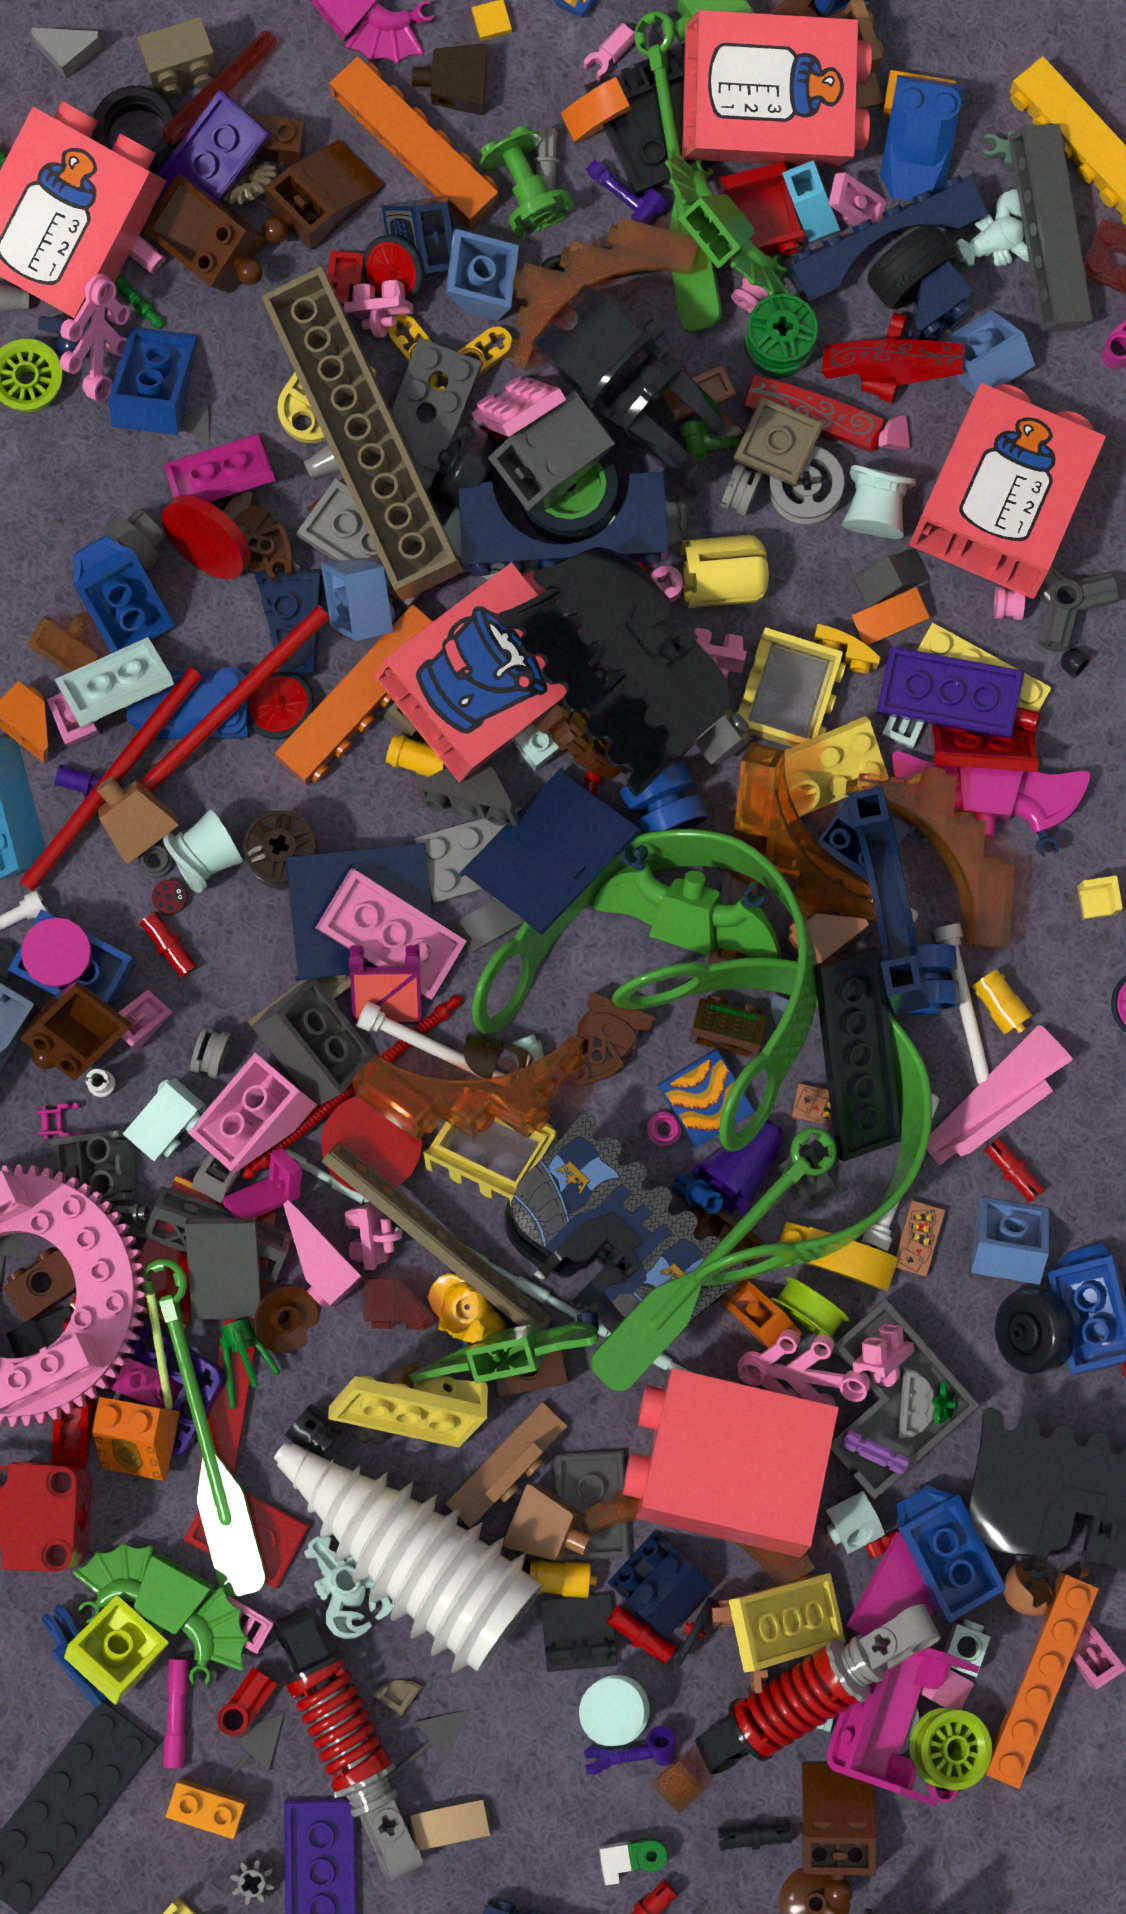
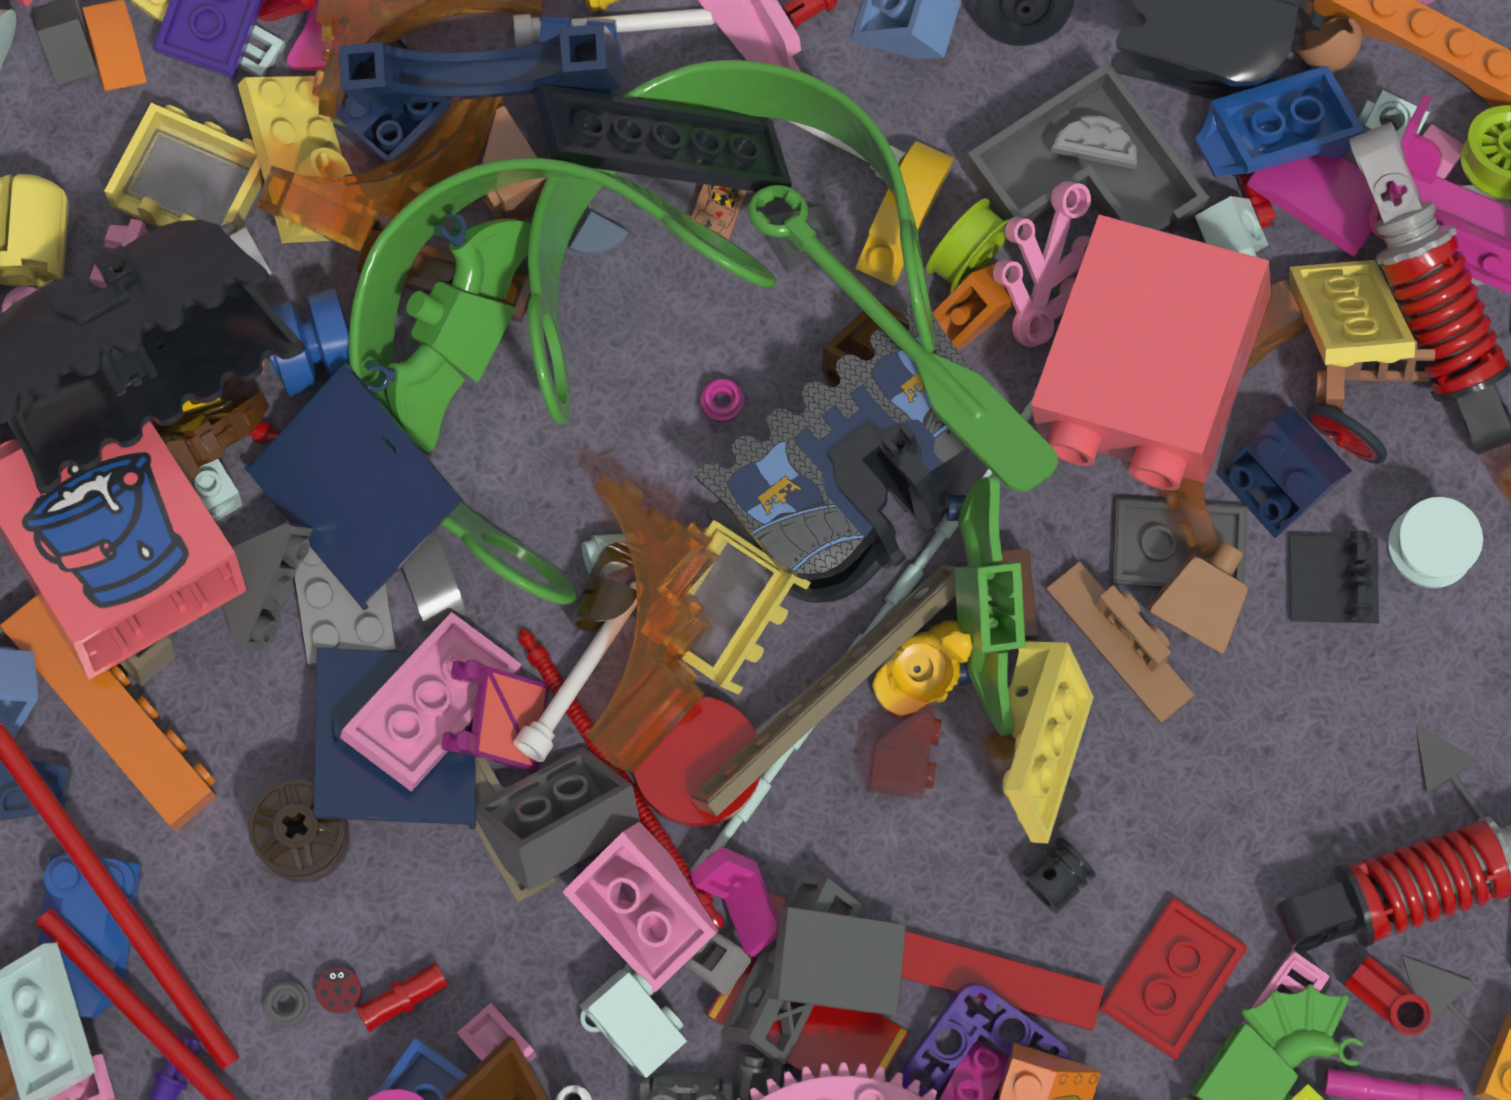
camera: 85 degrees left, 5 degrees down
(133, 817) = (228, 1020): medium nougat torso -> none
(159, 1349) = (933, 1057): yellowish green axle -> none
(202, 851) = (286, 932): light aqua hat -> none
(213, 1048) = (555, 949): light grey wheel -> none
(219, 1494) = (1126, 1001): piece -> none
(238, 1338) = (928, 954): green plant -> none
(280, 705) = (109, 814): red wheel -> none
(289, 1333) = (908, 896): reddish brown dish -> none
(322, 1264) = (844, 837): bright pink slope -> none
(344, 1592) = (1257, 855): light aqua animal -> none
(375, 1234) = (818, 765): bright pink hips -> none
(398, 1694) = (1391, 809): dark tan tile -> none
(413, 756) = (201, 649): yellow piece -> none
(417, 1557) = (1232, 750): white cone -> none
(563, 1578) = (1268, 583): yellow piece -> none
(610, 1037) = (597, 446): reddish brown piece -> none
(641, 1634) = (1343, 502): red pin -> none
(660, 1745) = (1470, 494): dark purple brick -> none
(698, 1193) = (810, 362): blue axle -> none
(699, 1096) = (689, 344): slope -> none
(728, 1027) = (607, 302): reddish brown slope -> none
(742, 1172) = (789, 318): dark purple cone -> none
(857, 654) = (156, 87): yellow slope -> none
(875, 1452) = (1153, 186): medium lavender axle -> none
(884, 1355) = (1036, 162): bright pink hips -> none
(919, 1238) = (898, 116): nougat tile -> none
(943, 1404) = (1101, 107): green plant -> none

